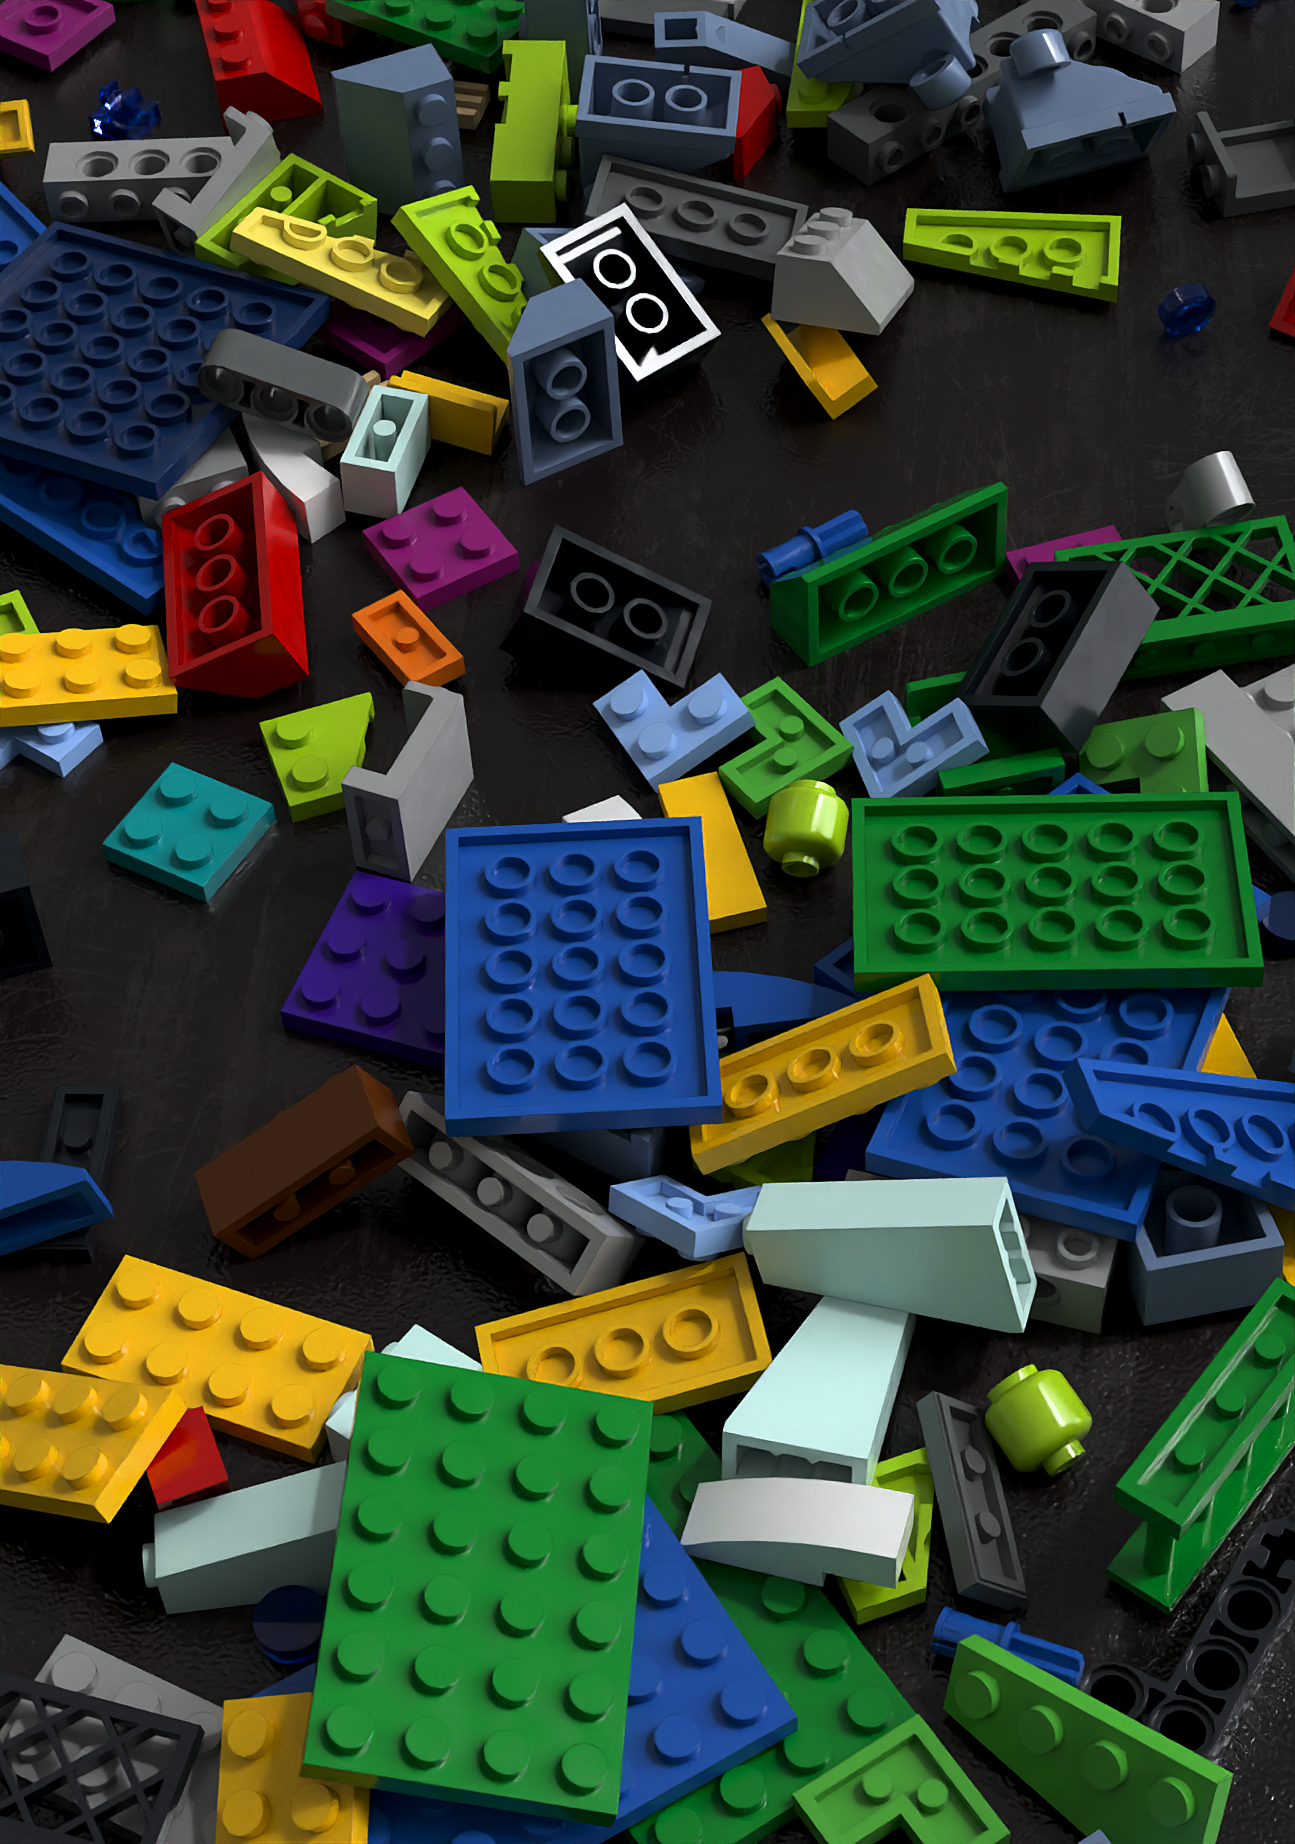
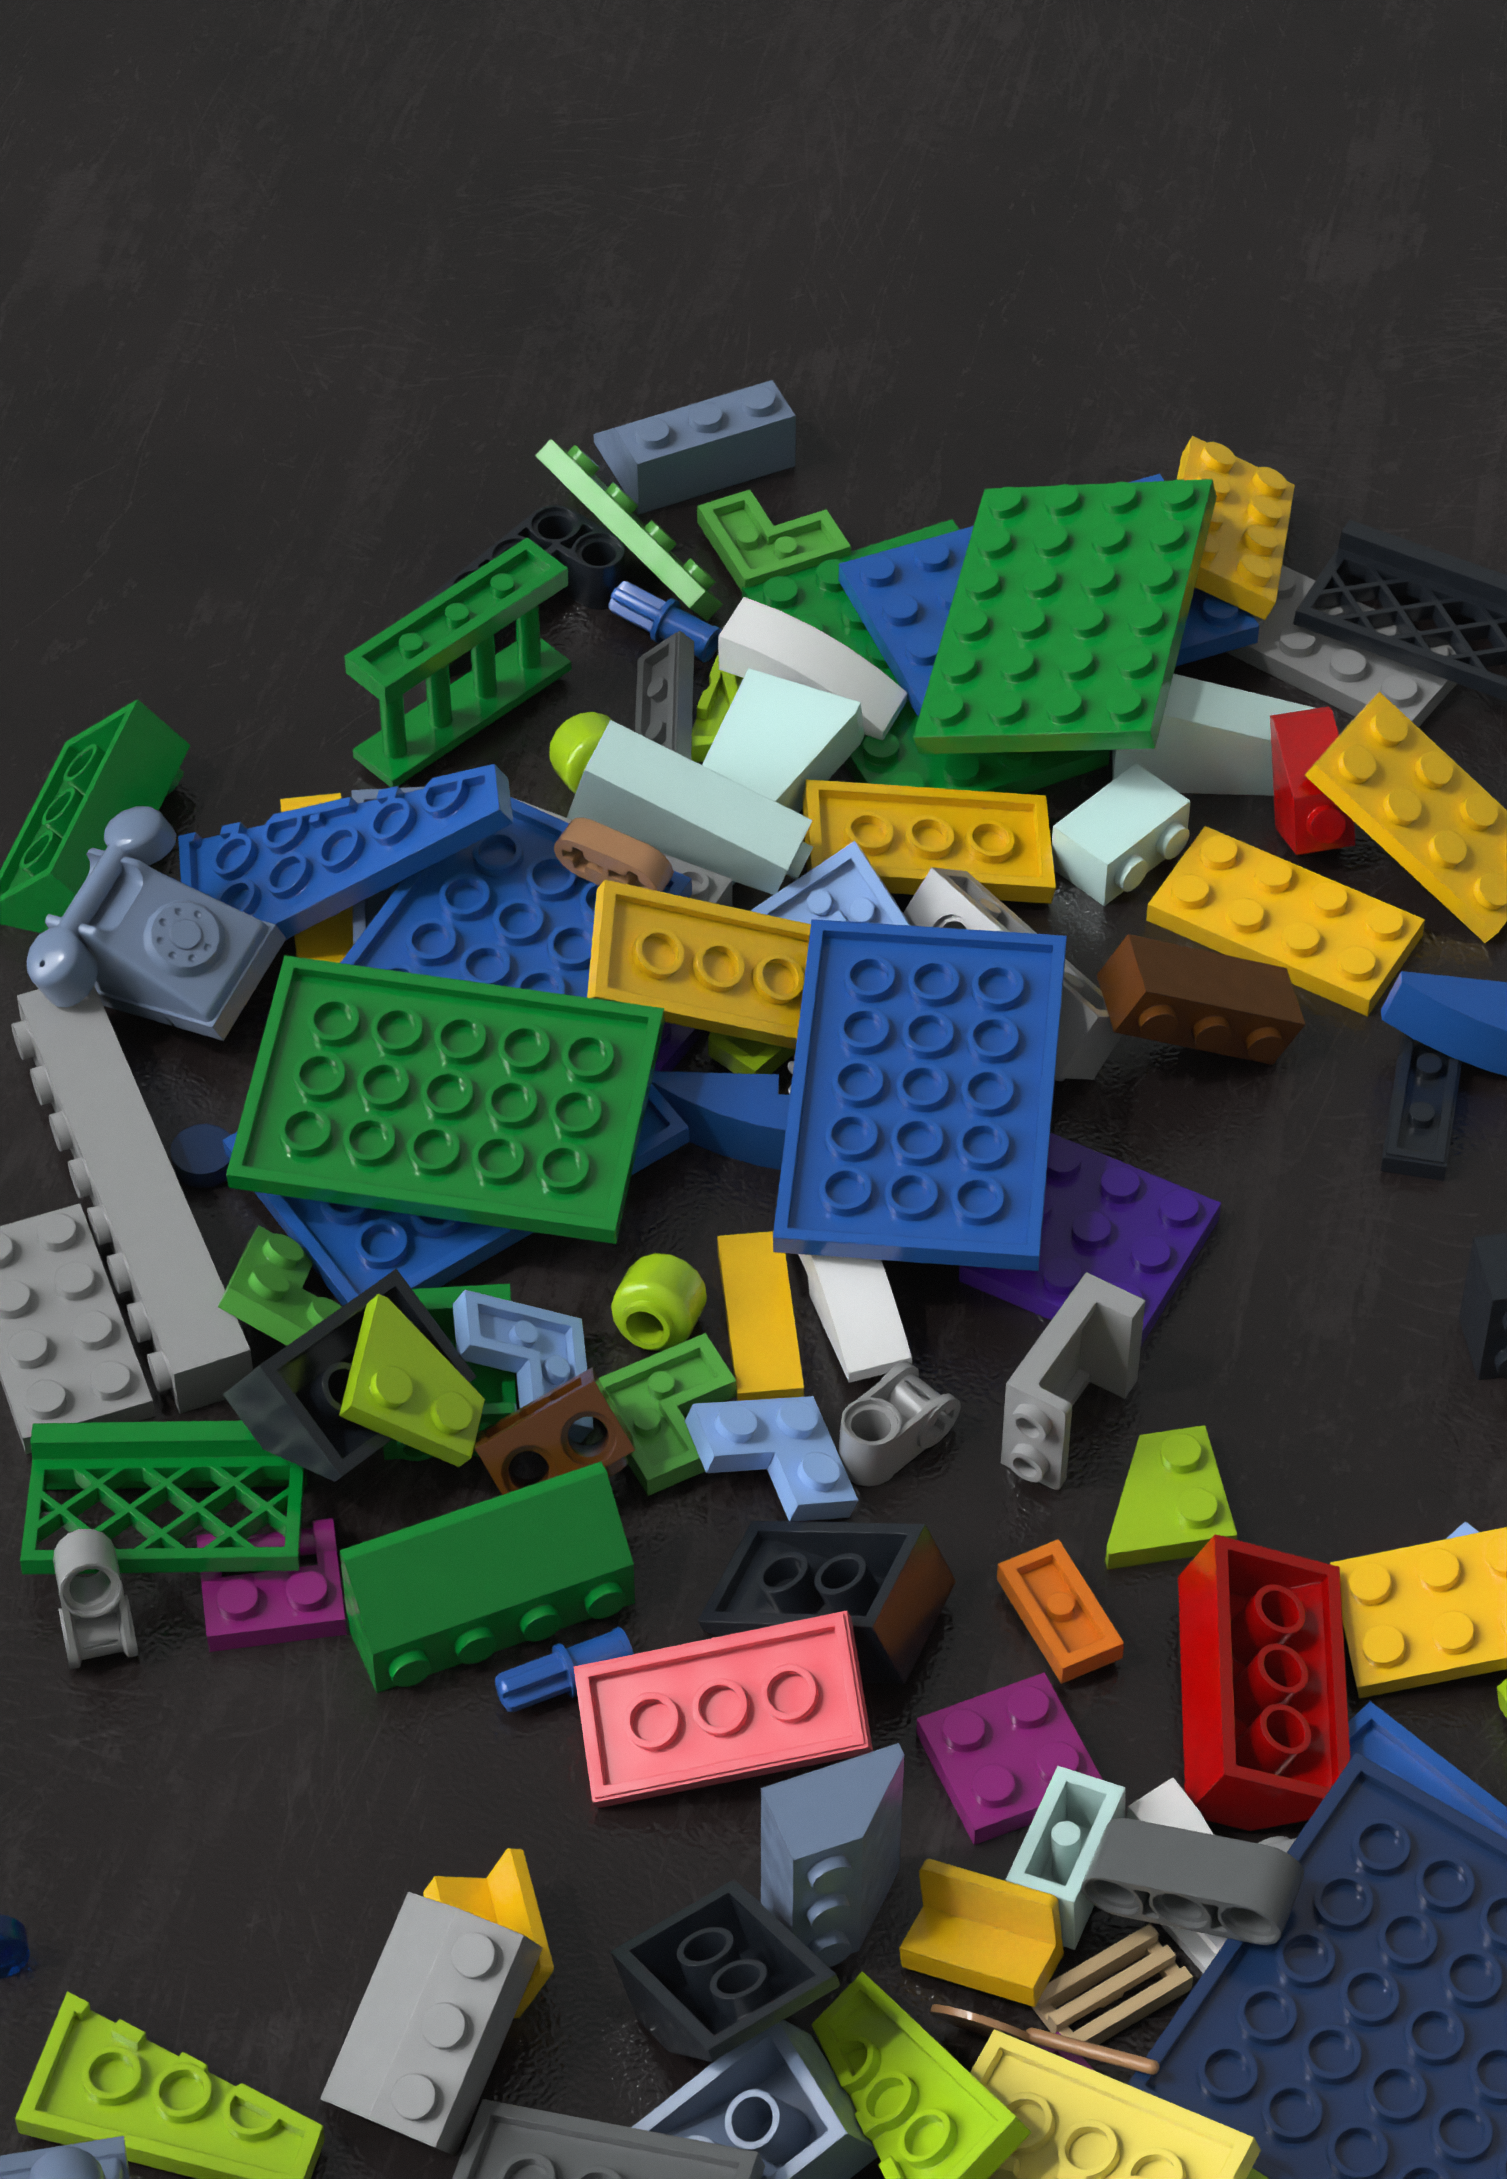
camera: 175 degrees left, 0 degrees up
(189, 832) = (1316, 1430): teal plate -> none
(429, 345) = (984, 2027): none -> medium nougat piece
(570, 759) = (893, 1425): none -> light grey piece
(671, 499) = (722, 1709): none -> coral tile
(862, 659) = (544, 1429): none -> reddish brown brick
(950, 1120) = (607, 854): none -> medium nougat beam
(995, 631) = (409, 1388): none -> lime wing

